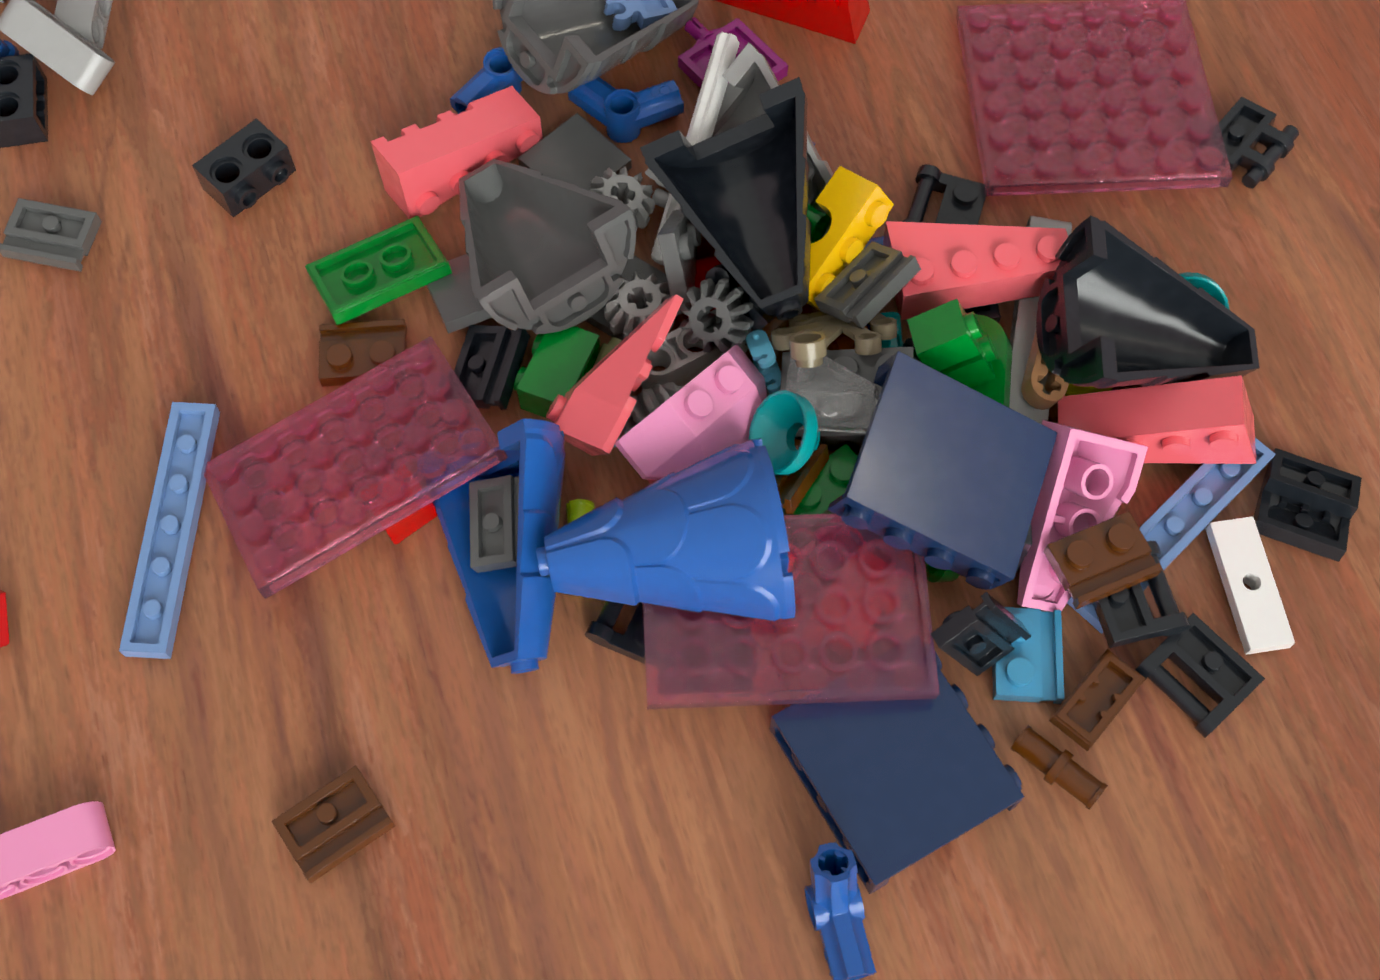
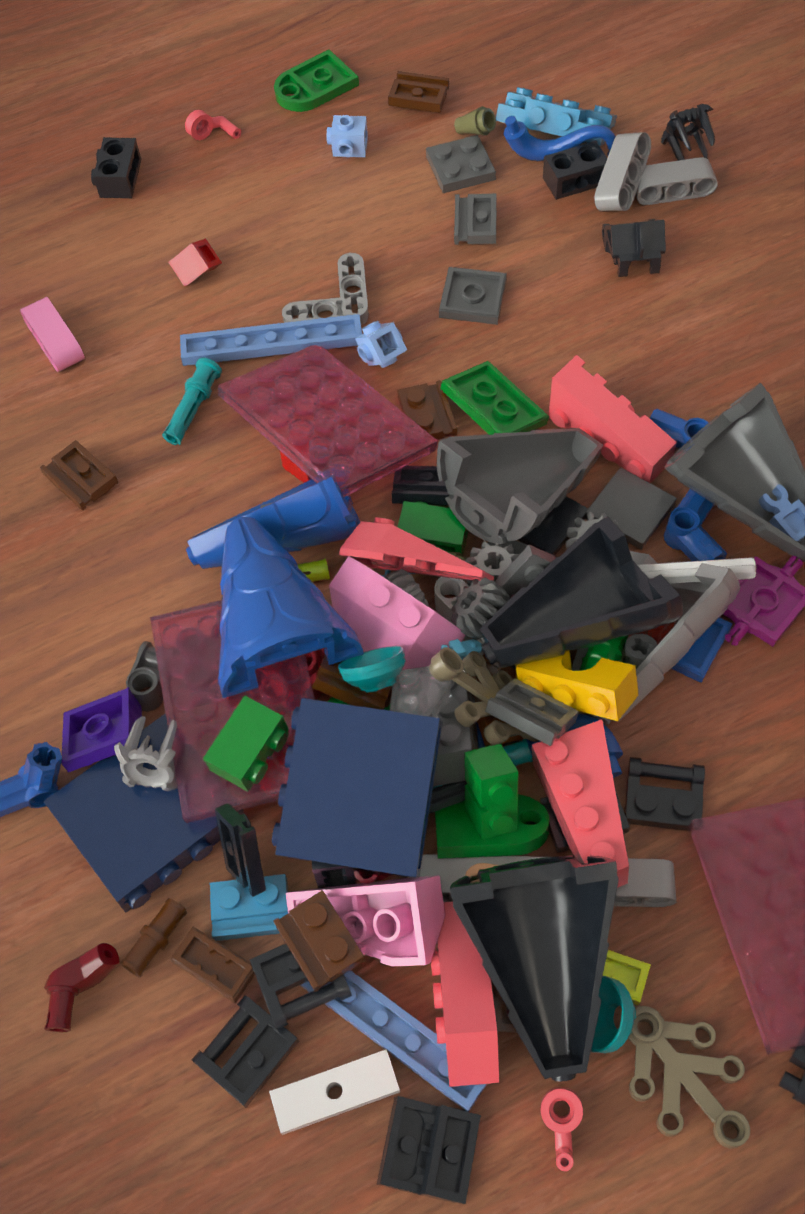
camera: 85 degrees right, 5 degrees down
(135, 423) = (338, 306): none -> light grey beam
(176, 63) = (635, 243): none -> black piece
(182, 266) = (472, 295): none -> dark grey tile
(230, 639) = (197, 389): none -> teal pin
(241, 379) = (380, 344): none -> light blue brick
(244, 167) = (558, 304): black brick -> none
(688, 734) = (146, 674): none -> dark grey piece
(783, 802) = (97, 727): none -> dark purple plate
(869, 587) = (246, 743): none -> green piece
(869, 713) = (133, 758): none -> light grey piece
(1106, 870) = (76, 978): none -> dark red arm
(1240, 265) = (681, 1070): none -> dark tan plant
(1280, 371) = (562, 1124): none -> coral plate

